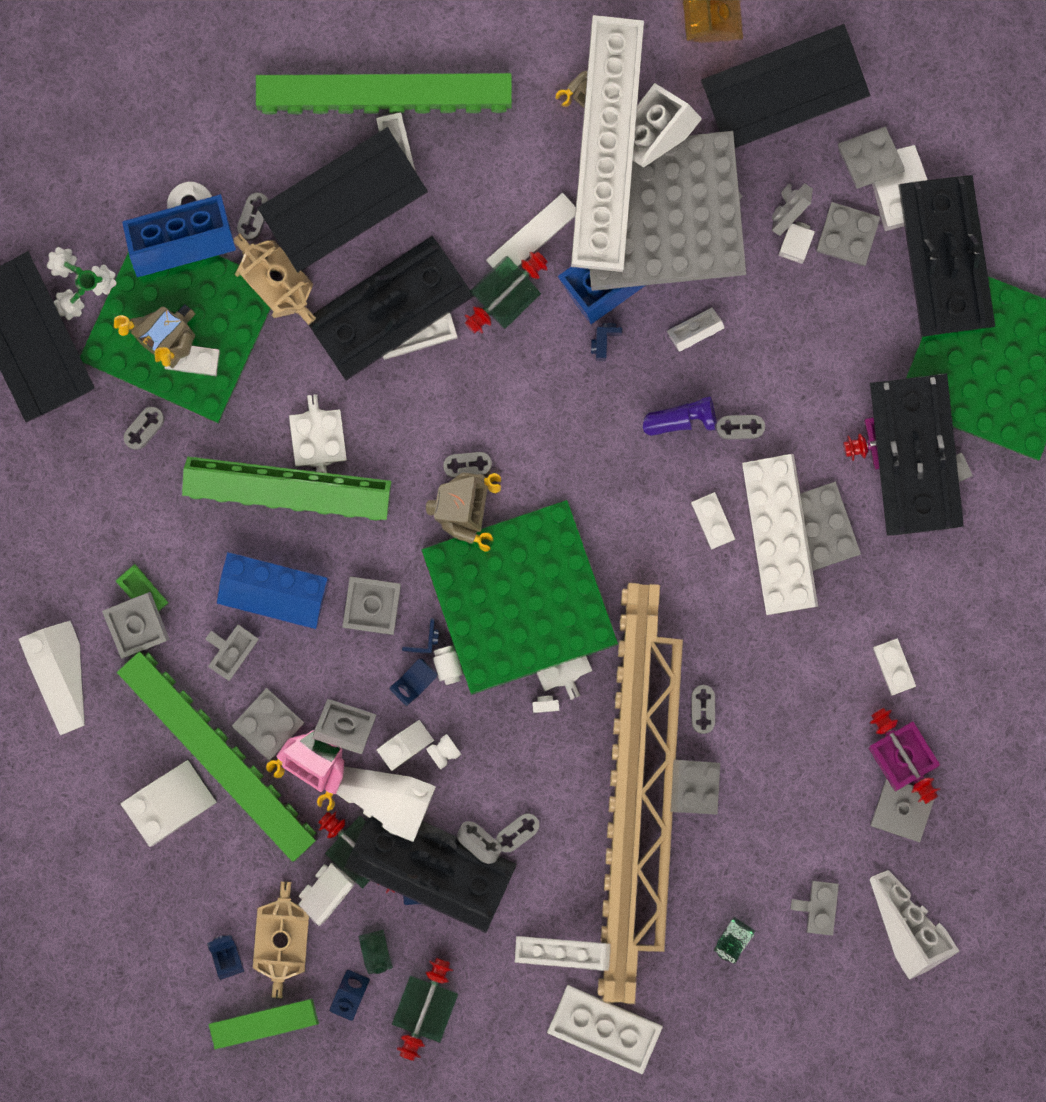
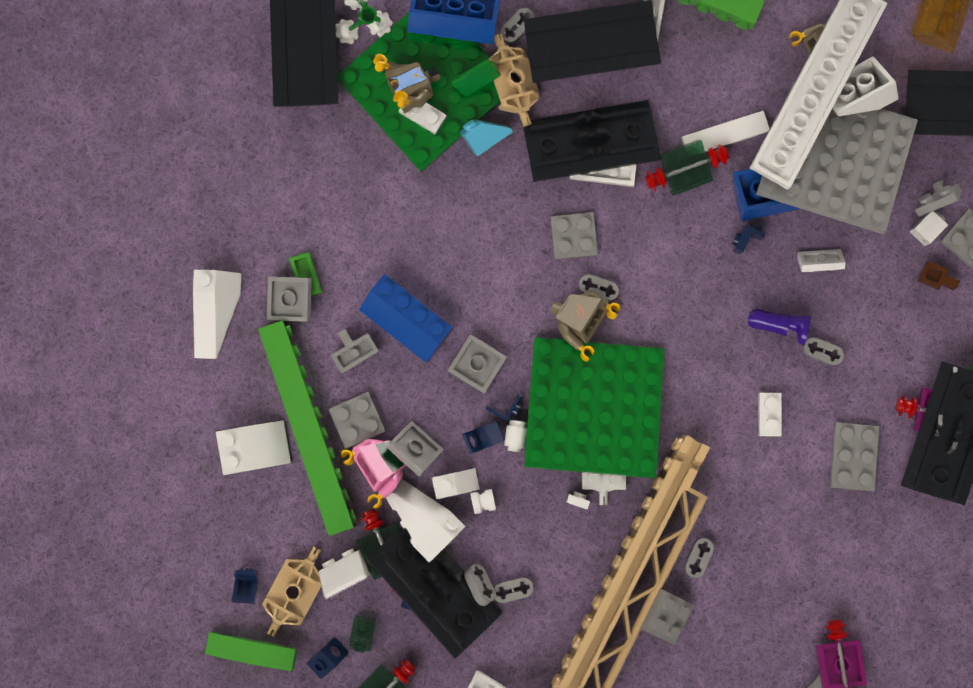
camera: 25 degrees right, 0 degrees up
(148, 432) = (360, 146): light grey beam -> none
(234, 295) = (476, 77): none -> green slope
(269, 352) = (483, 135): none -> medium azure slope
(286, 488) = (451, 244): bright green brick -> none
(317, 437) = (492, 216): white plate -> none
(416, 420) = (574, 236): none -> light grey plate
(780, 534) = (818, 448): white plate -> none
(824, 292) = (935, 276): none -> reddish brown plate
(894, 667) = (862, 590): white plate -> none

